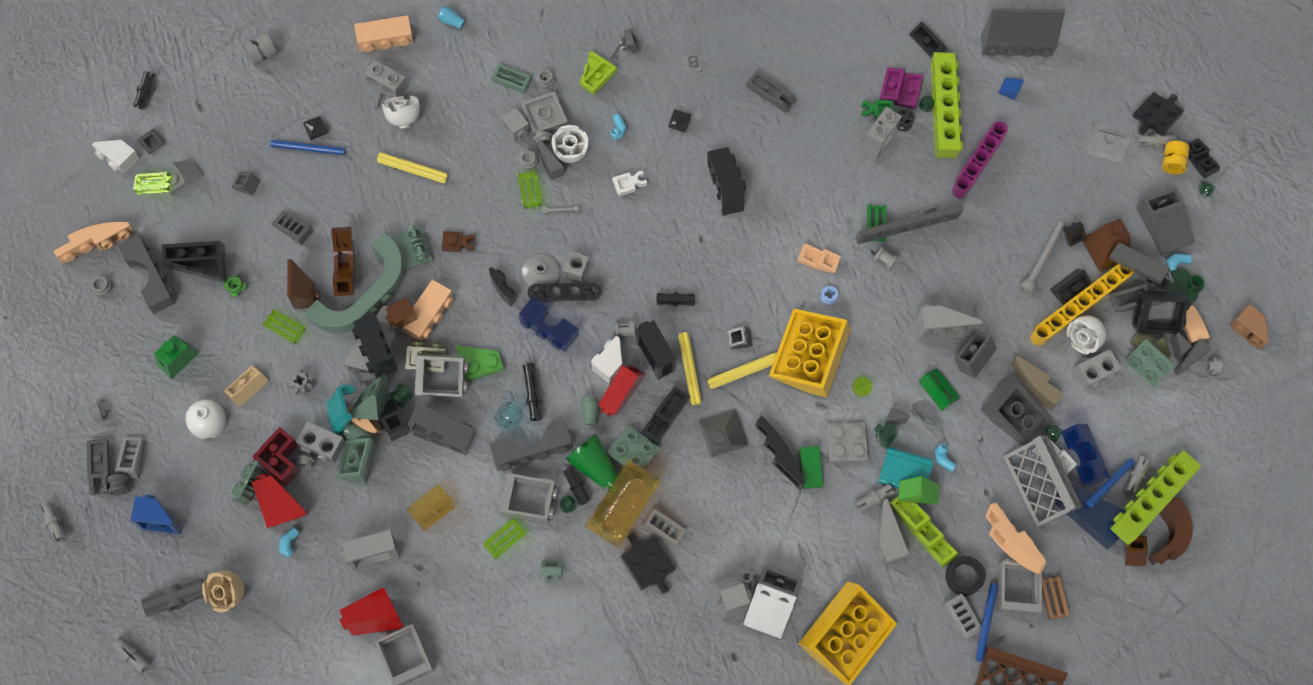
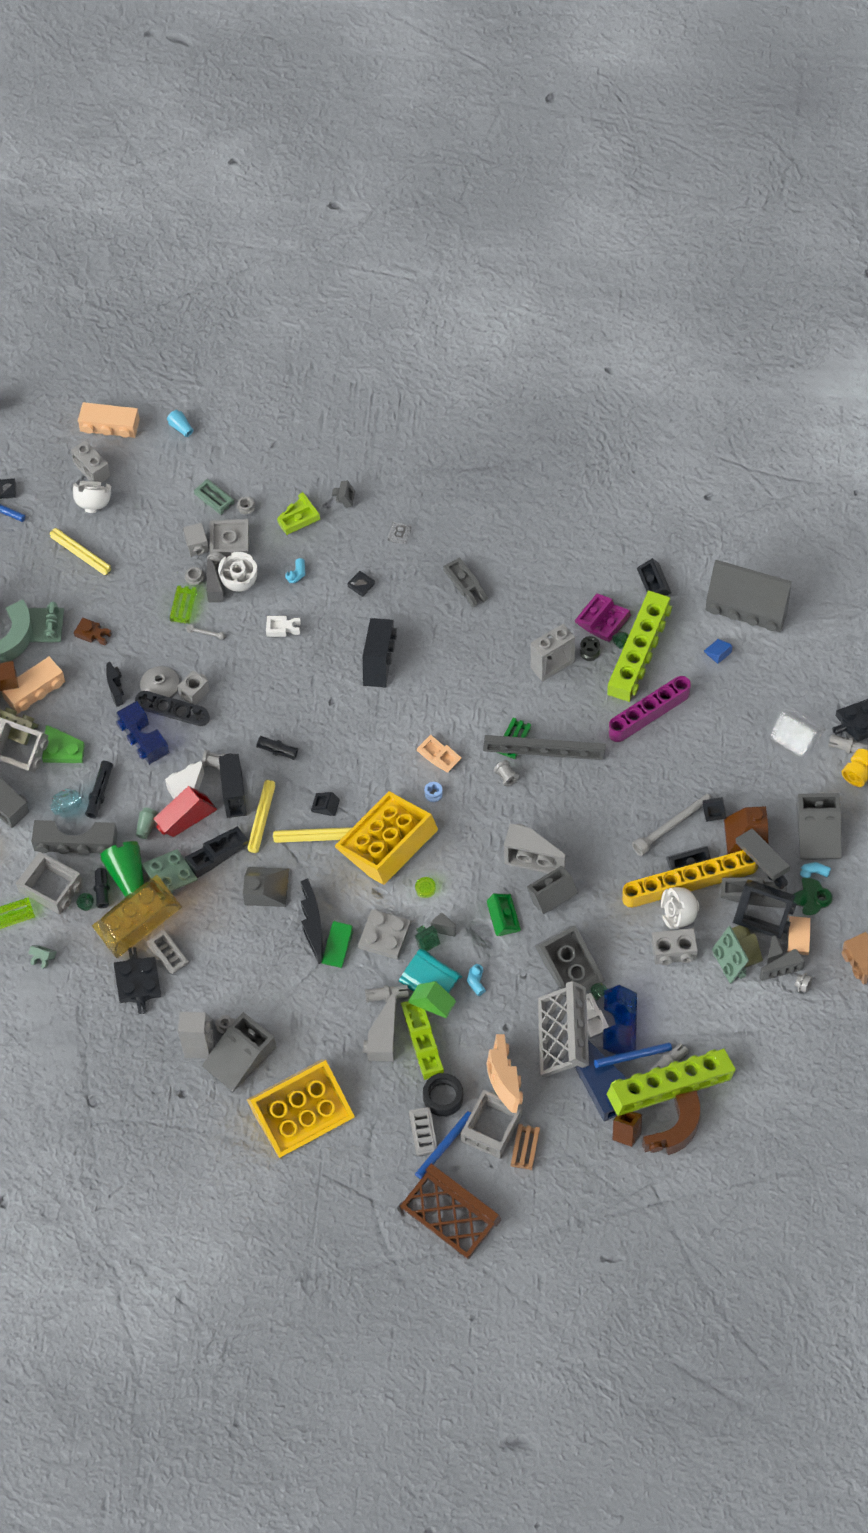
camera: 30 degrees right, 10 degrees down
(876, 108) = (575, 628): green plate -> none
(1036, 383) = (606, 940): dark tan slope -> none

